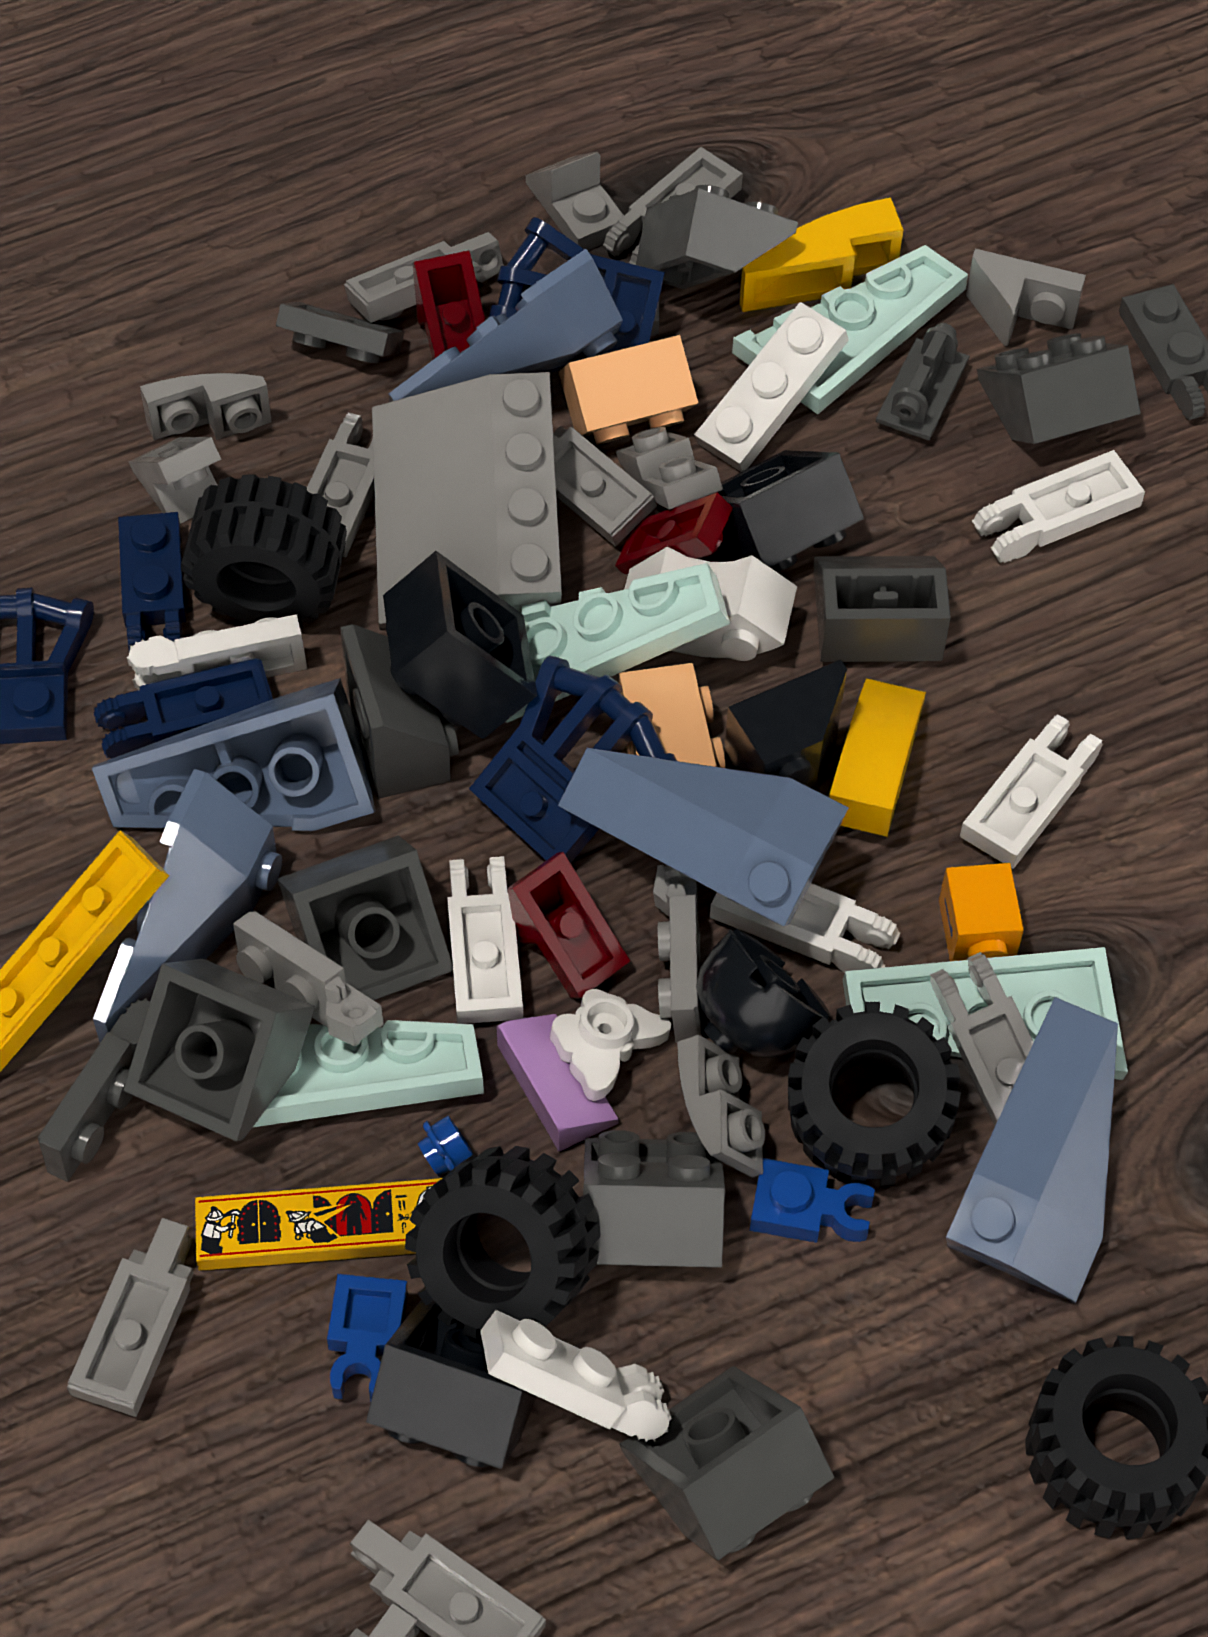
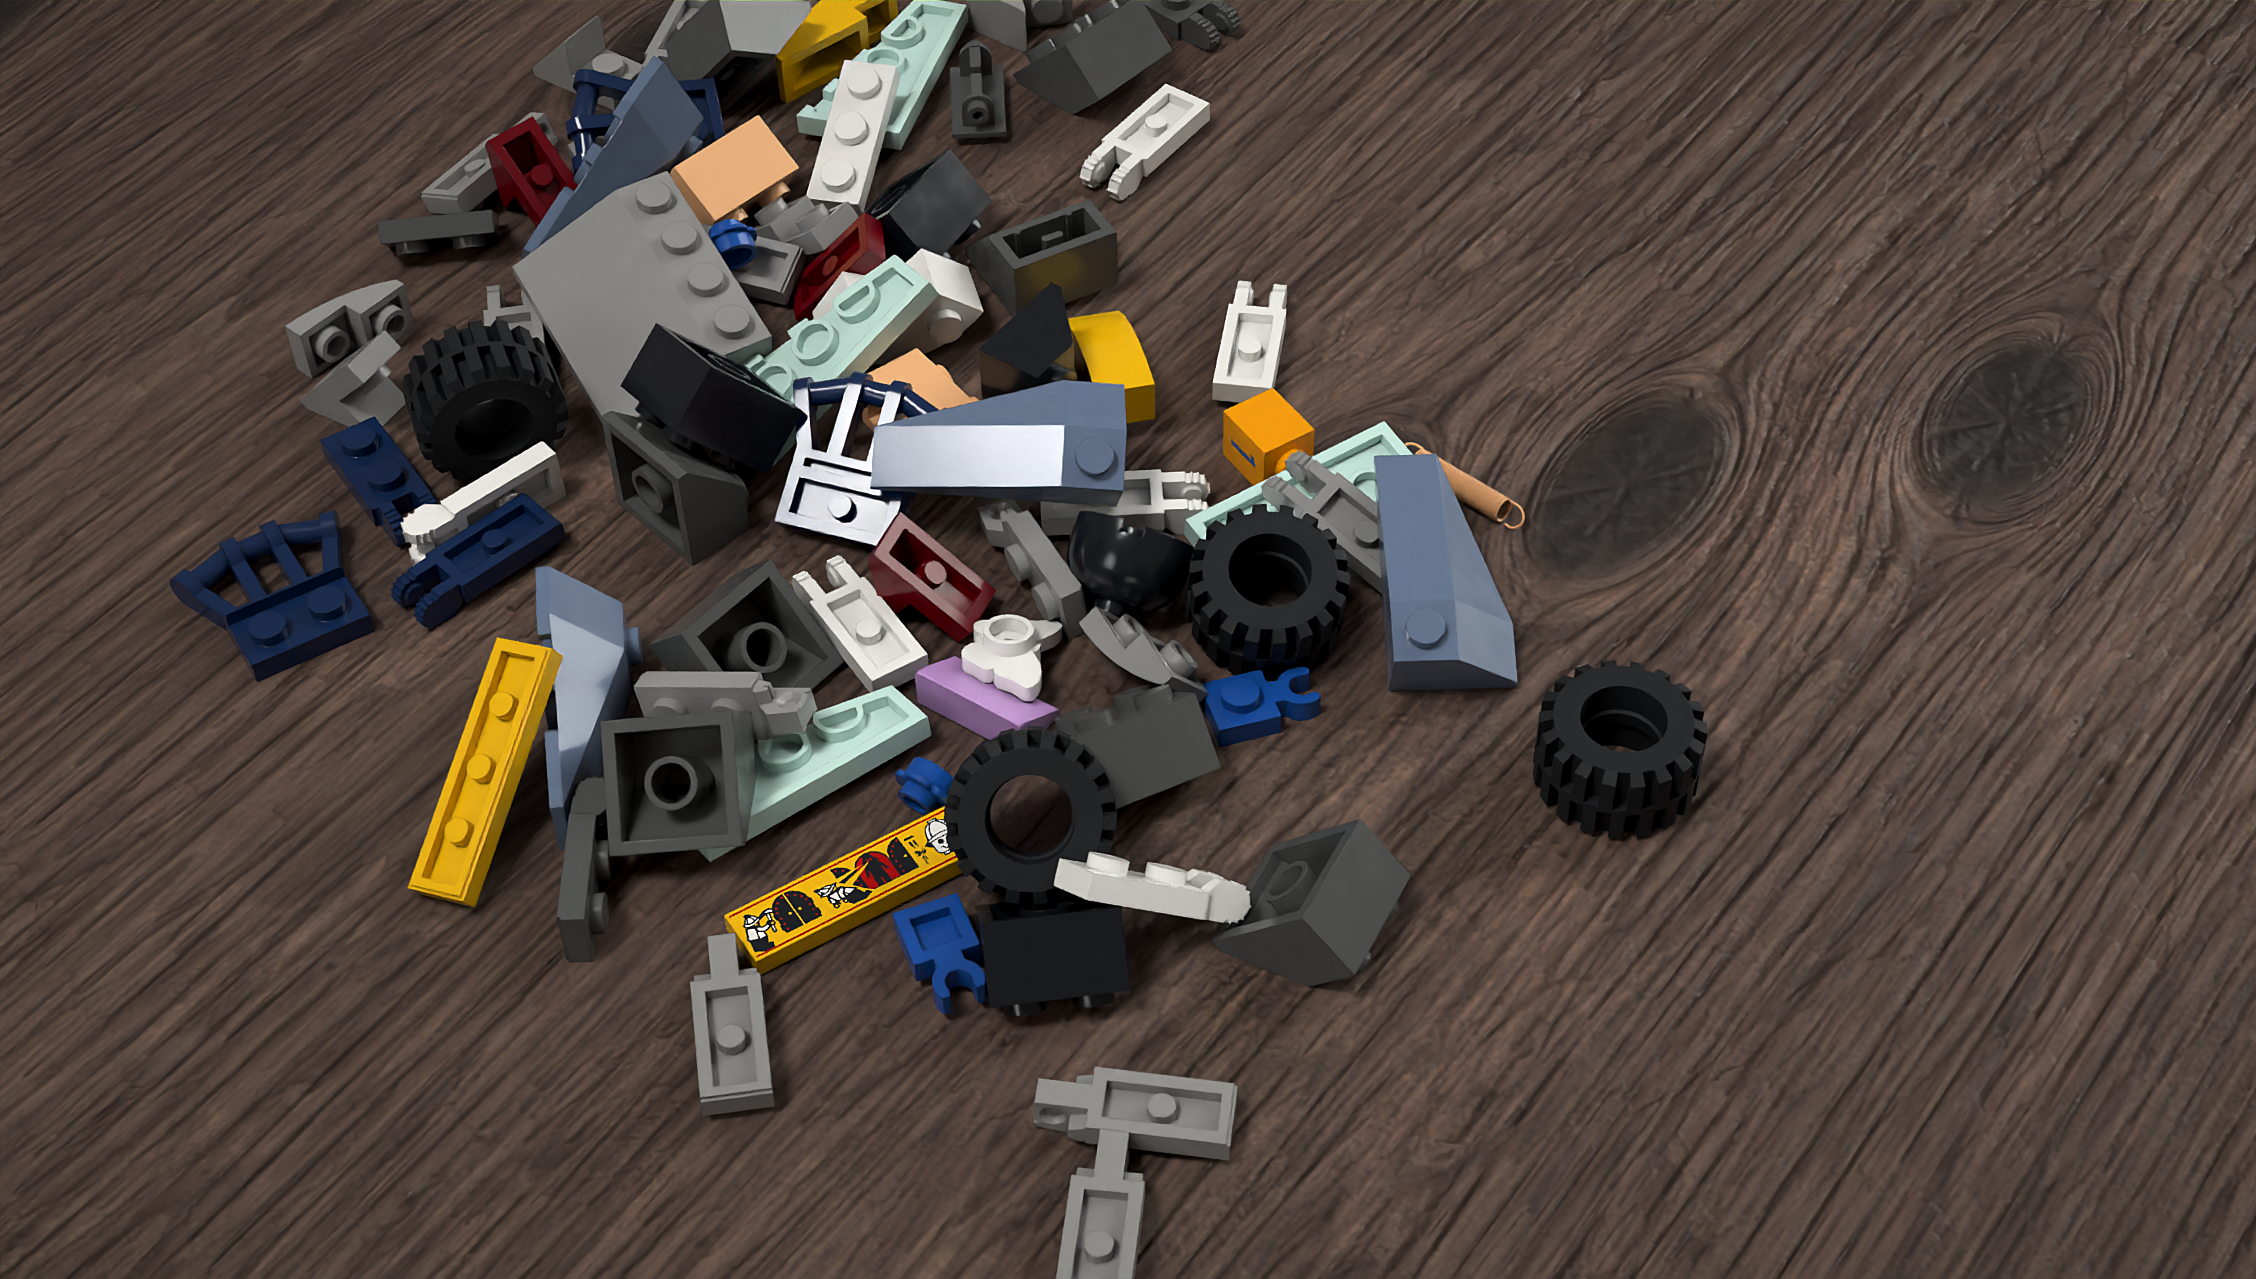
camera: 25 degrees left, 10 degrees down
(286, 759) = (602, 540): sand blue wedge -> none
(582, 468) = (734, 242): none -> blue plate
(1150, 1050) = (1476, 493): none -> light nougat piece

